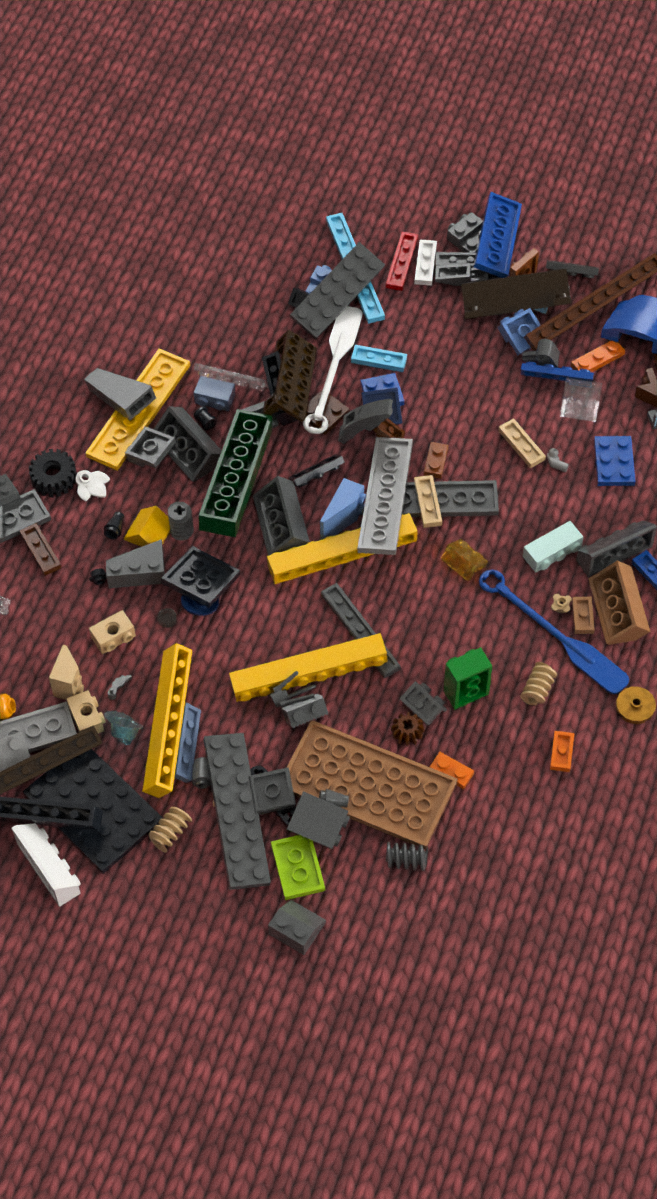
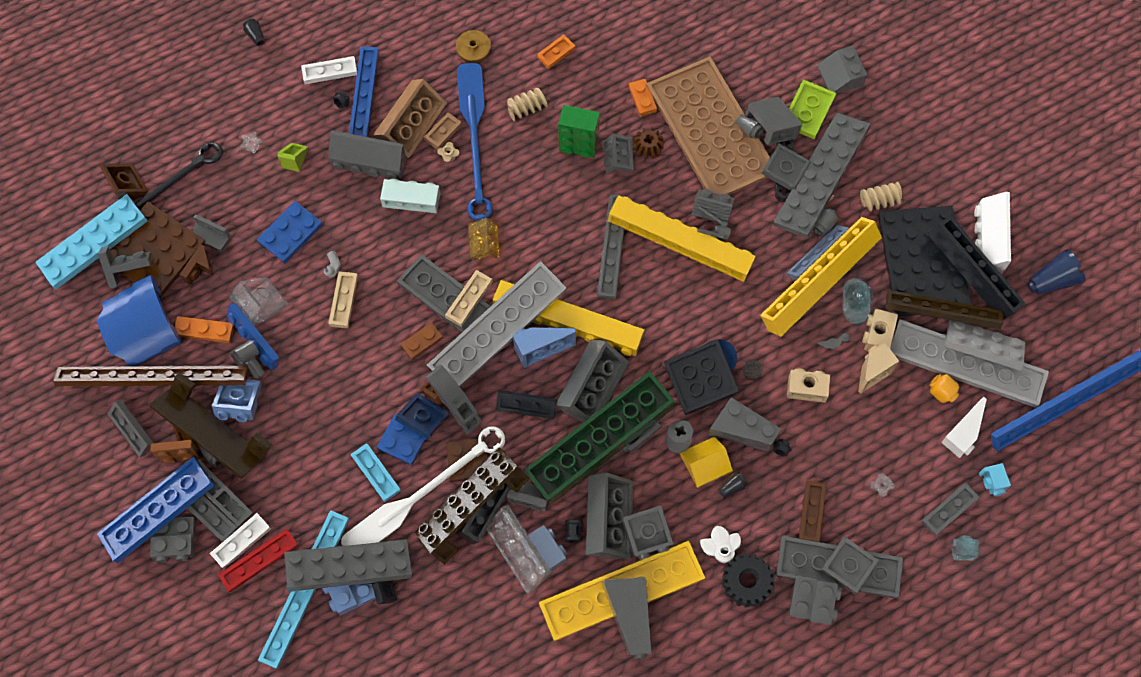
camera: 140 degrees left, 10 degrees up
(406, 856) = (728, 59): dark grey piece -> none

